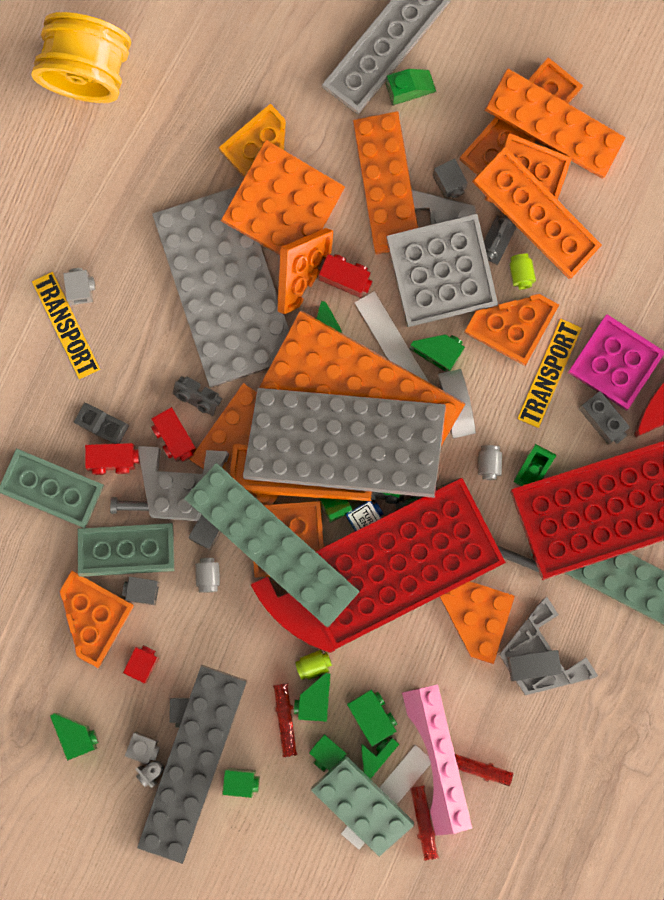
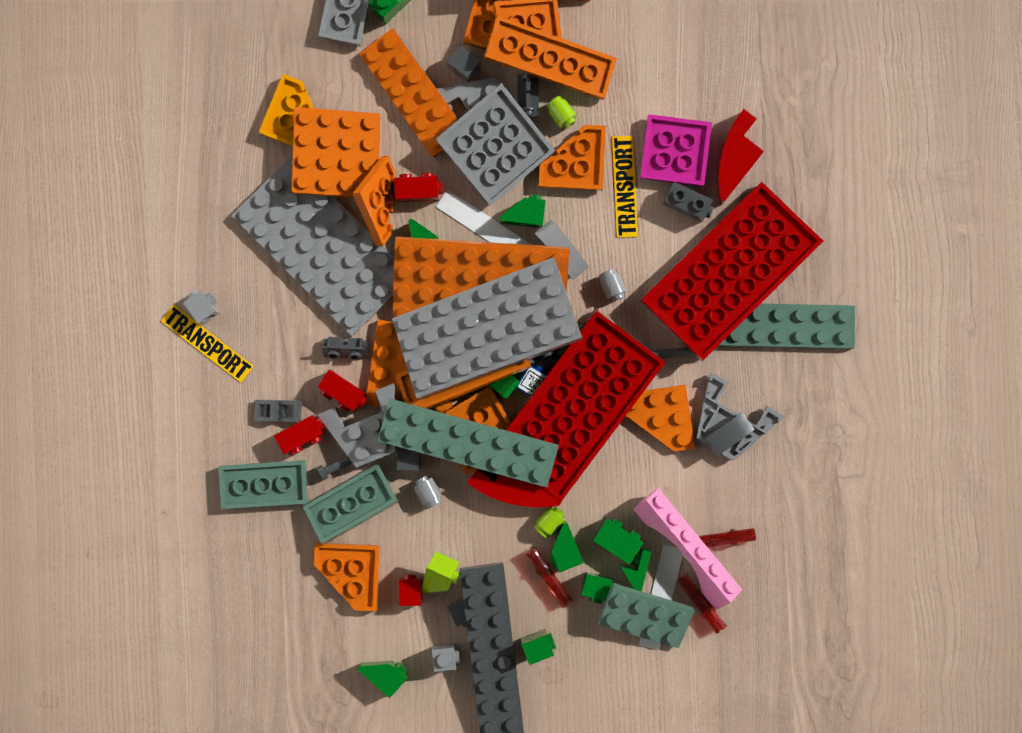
camera: 20 degrees left, 5 degrees up
(81, 57) = (104, 113): yellow wheel -> none
(141, 590) = (380, 531): dark grey brick -> none
(149, 773) = (461, 677): light grey hinge -> none
(179, 661) = (440, 574): none -> lime slope
(535, 465) = (650, 270): green slope -> none

